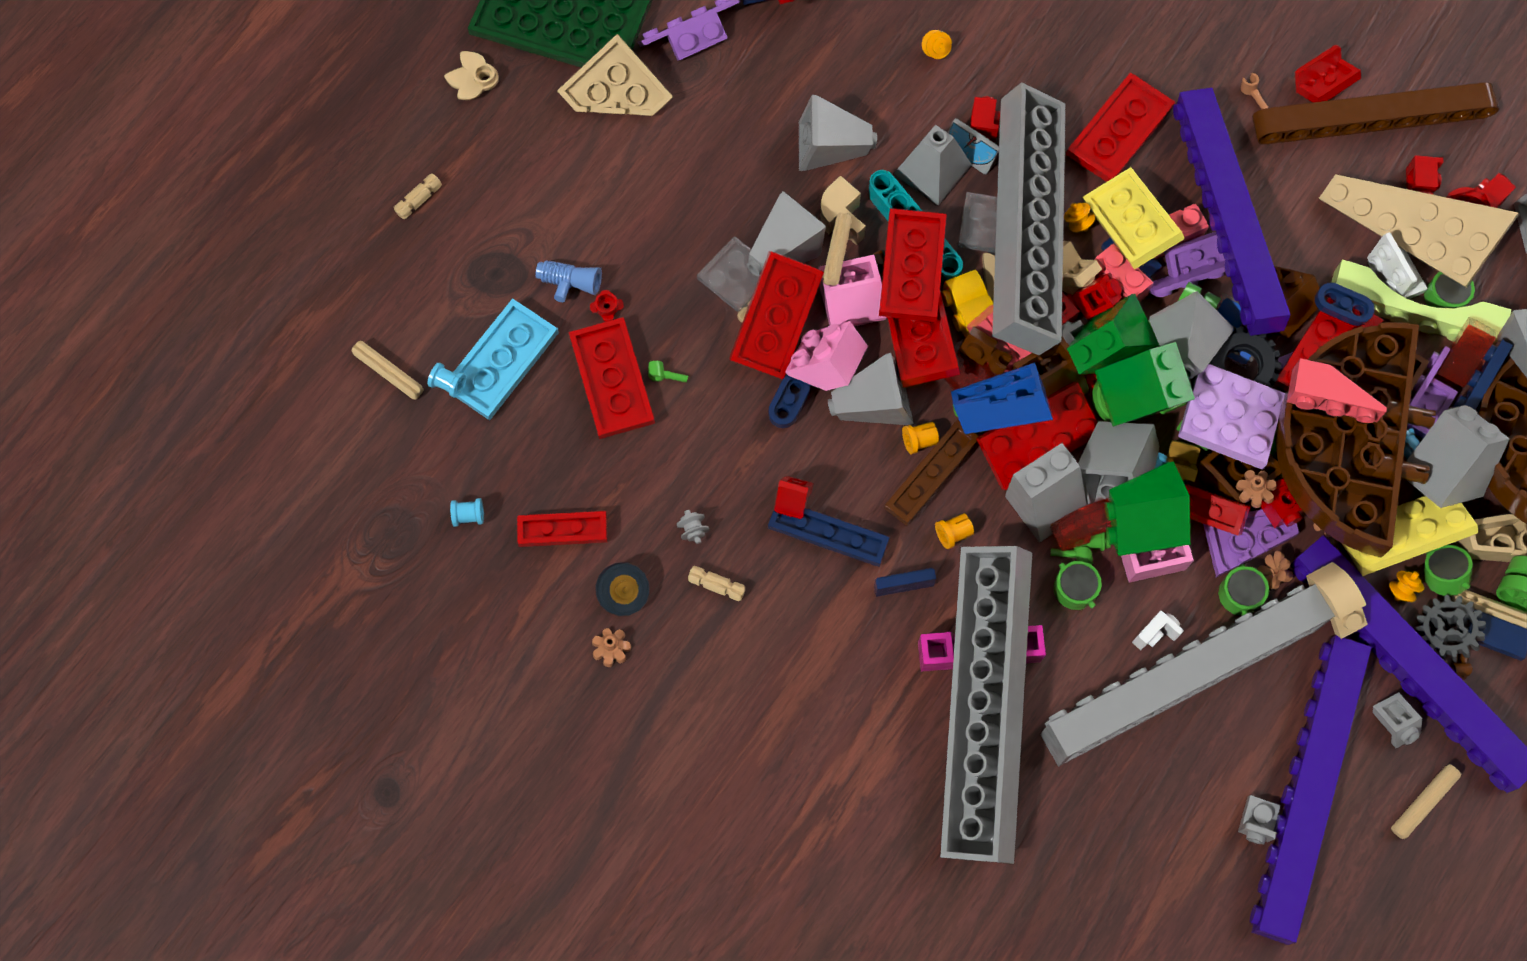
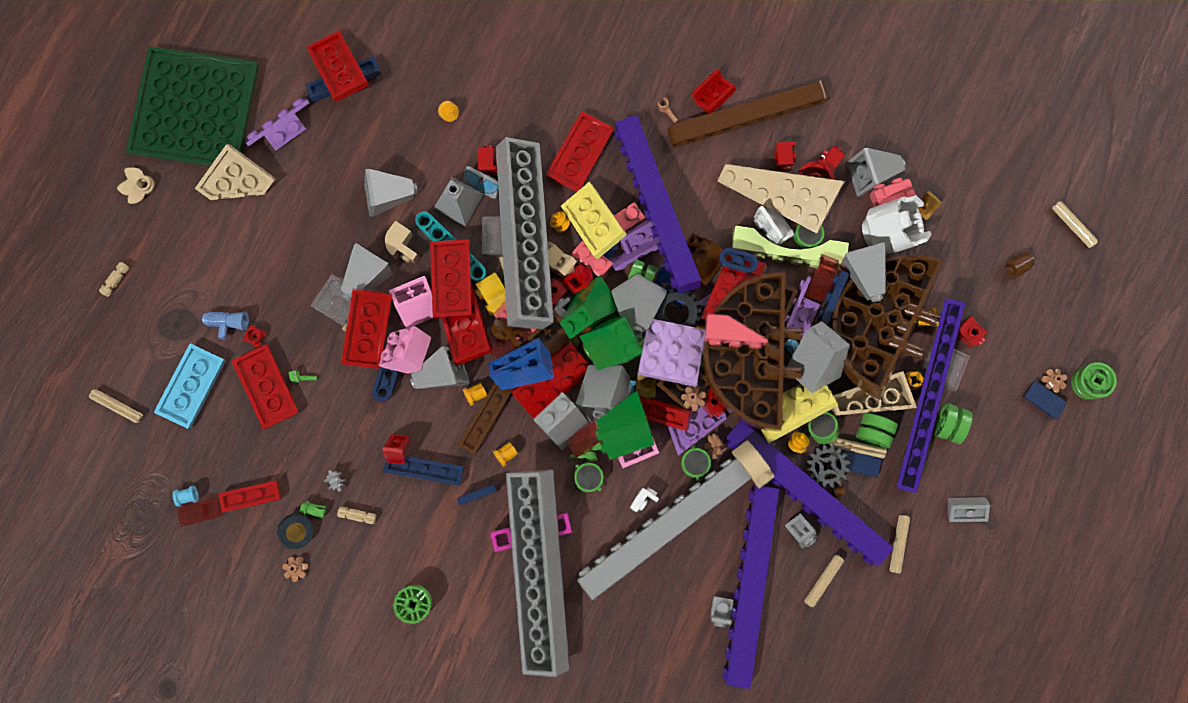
camera: 10 degrees left, 10 degrees up
(446, 380) = (154, 410): medium azure bush -> none
(482, 540) = (198, 512): none -> clear red slope
(652, 563) = (312, 509): none -> bright green pin
(795, 714) = (409, 613): none -> bright green wheel
(837, 249) = (399, 276): tan axle -> none

